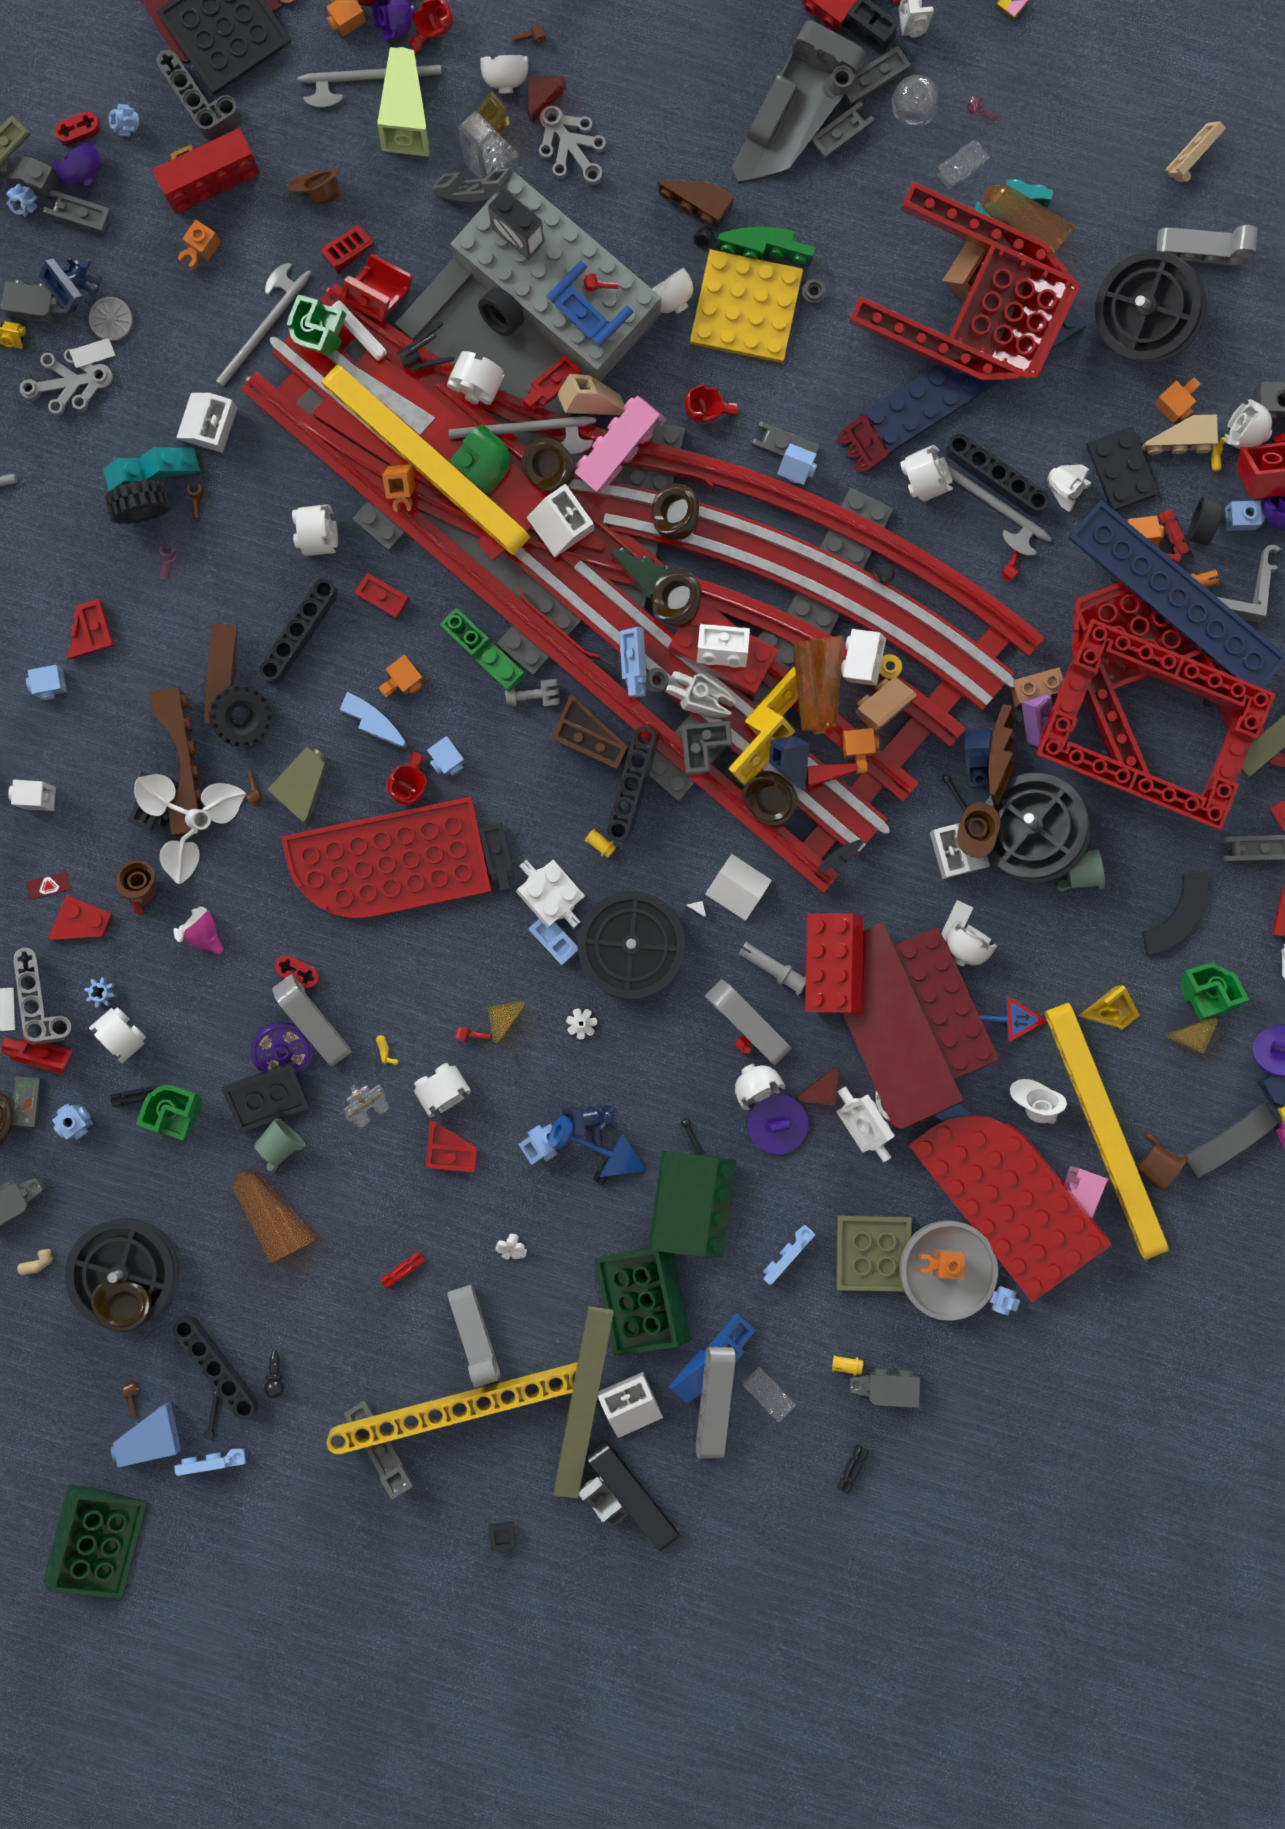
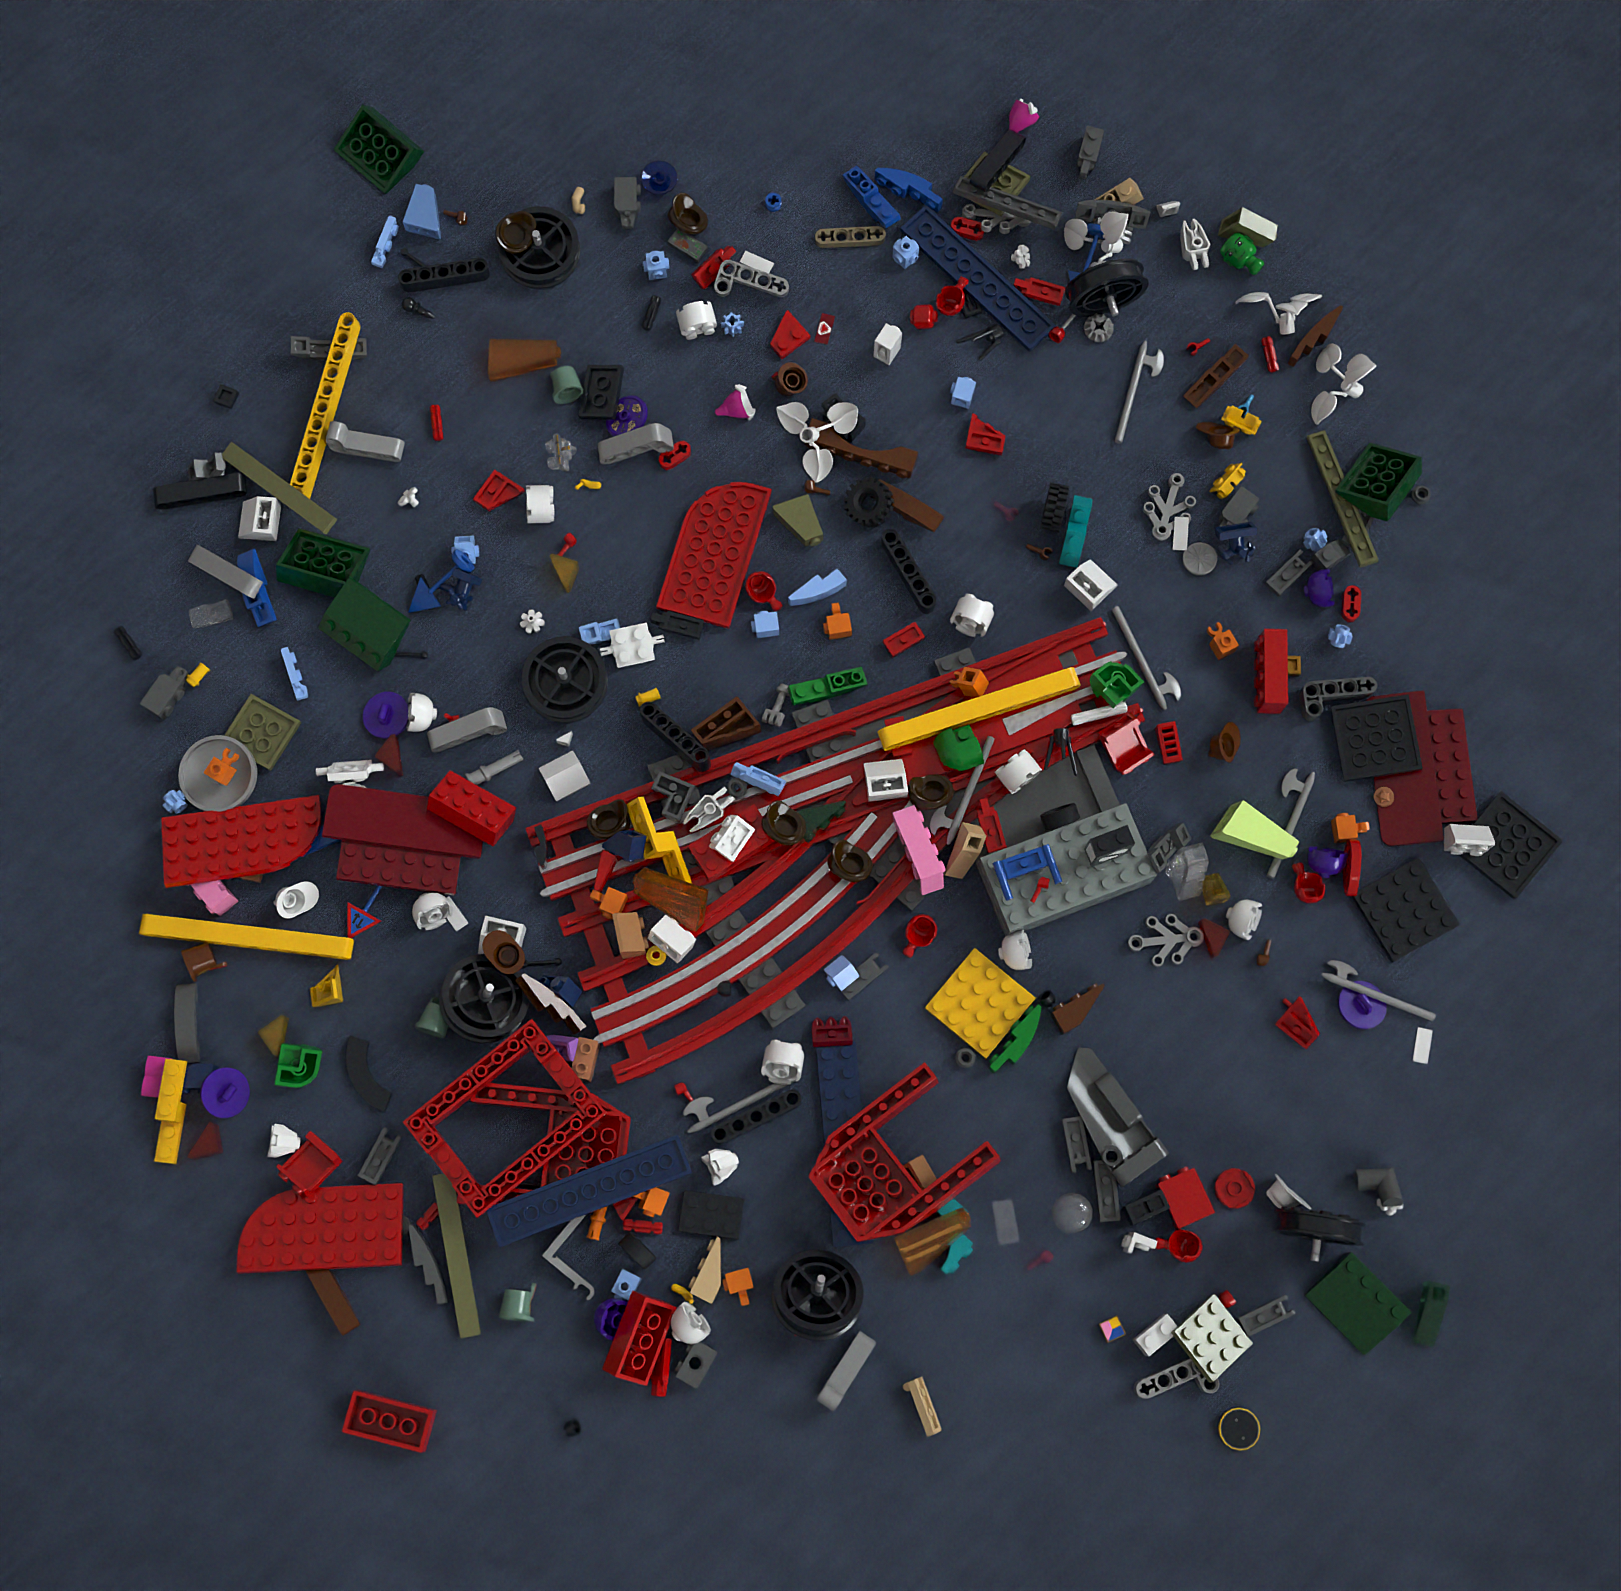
camera: 115 degrees right, 10 degrees down
(170, 1111) = (626, 327): green brick -> none

